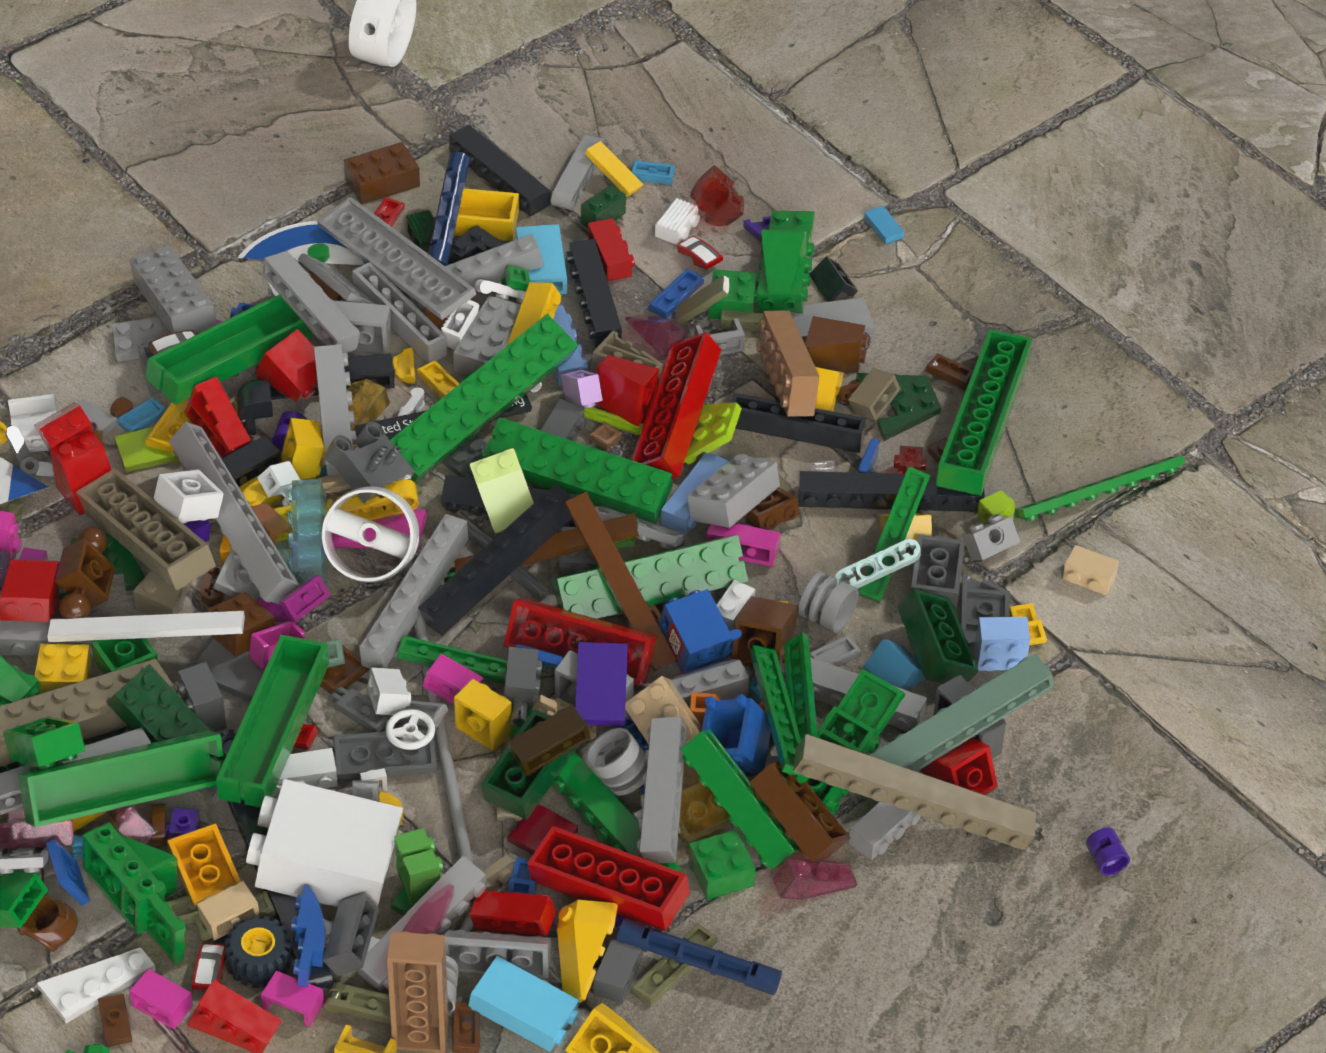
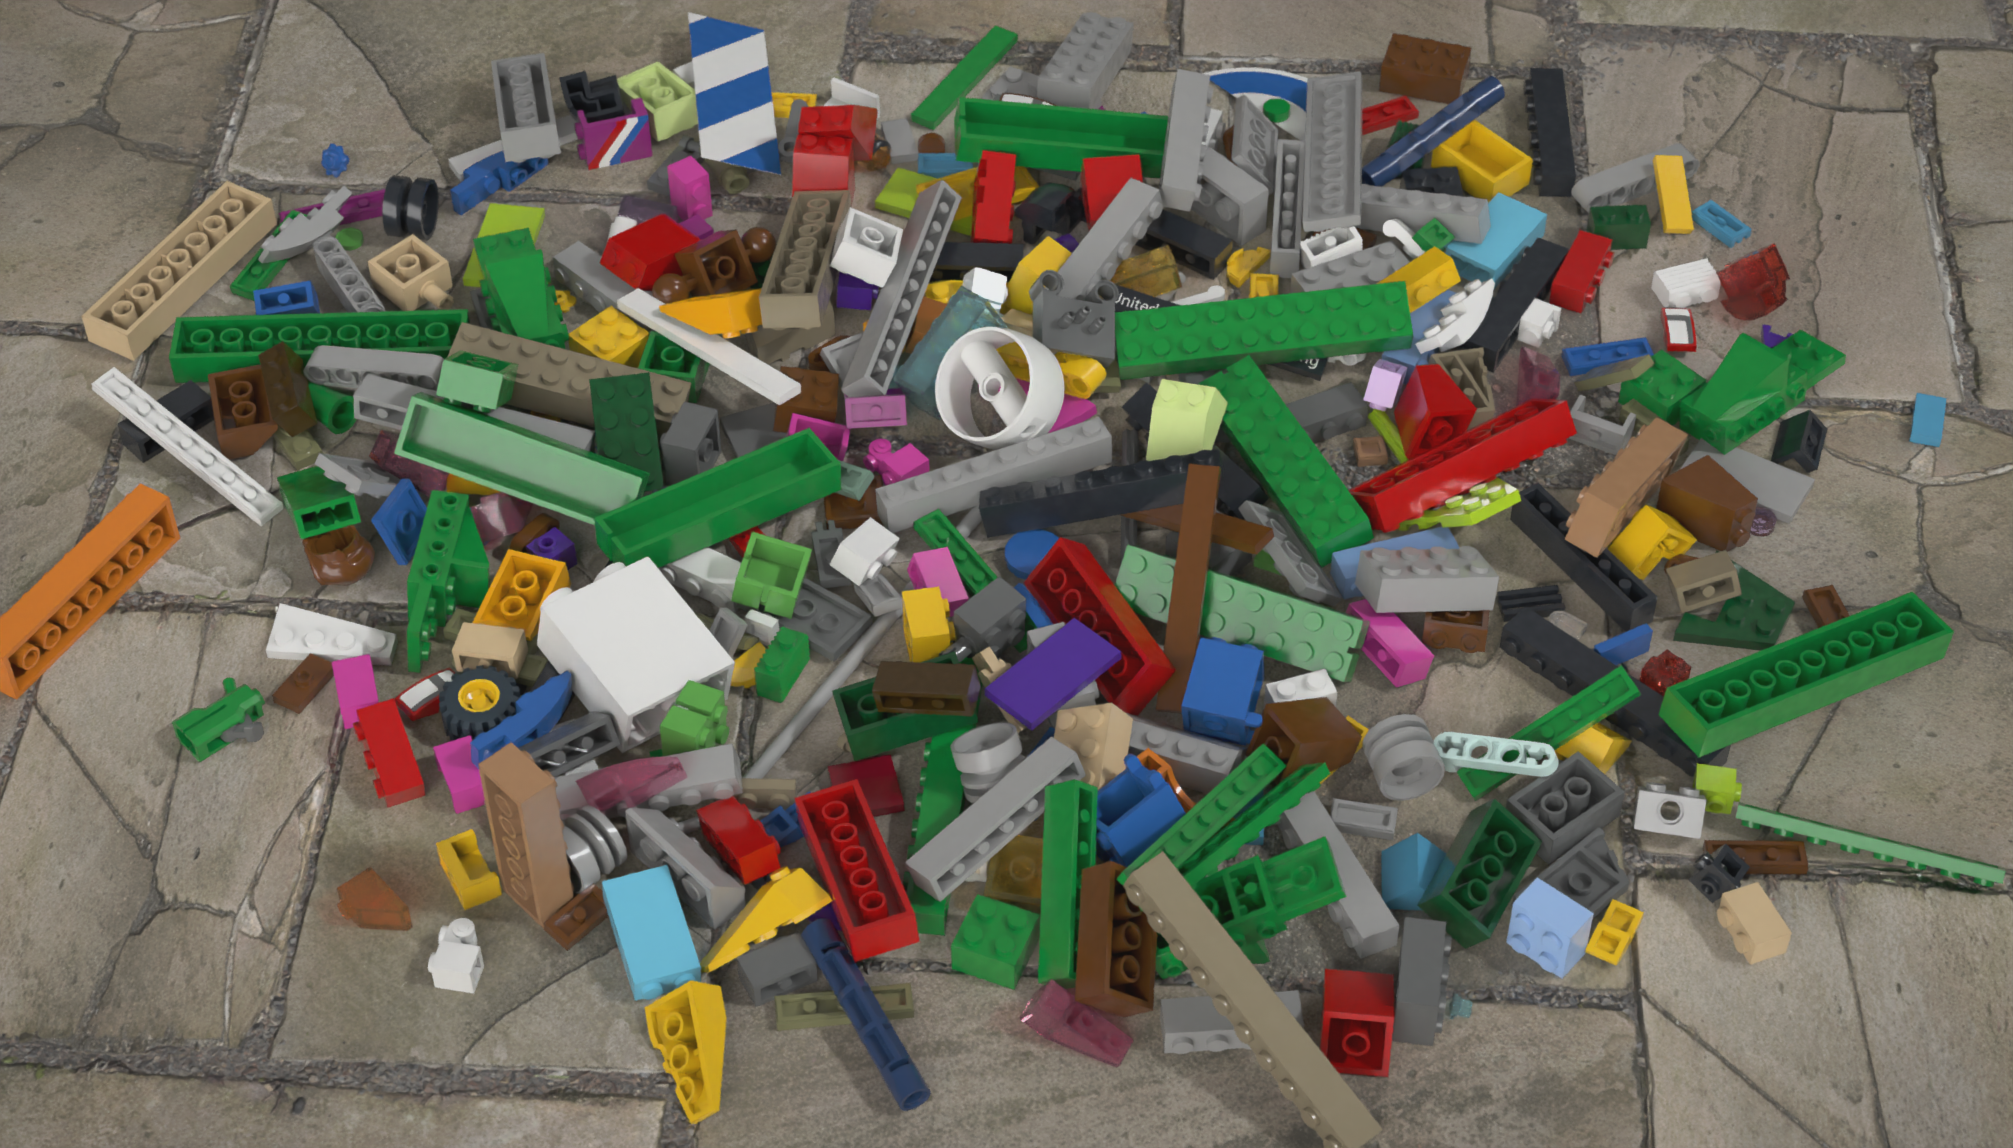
camera: 45 degrees right, 0 degrees up
(86, 350) = (964, 77): none -> green tile
(132, 599) = (719, 312): none -> light orange slope
(345, 627) = (895, 466): none -> dark pink brick
(358, 741) = (772, 574): none -> bright green piece
(410, 735) = (838, 602): white piece -> none
(413, 795) = (781, 664): none -> green brick
(482, 627) = (1026, 551): none -> blue tile
(581, 318) = (1460, 317): none -> white slope
(621, 295) = (1538, 322): none -> white brick
(789, 463) = (1530, 598): none -> black tile
(968, 715) = (1390, 967): sand green brick -> none
(1050, 554) = (1718, 872): none -> black brick
(1051, 534) = (1766, 856): none -> reddish brown tile

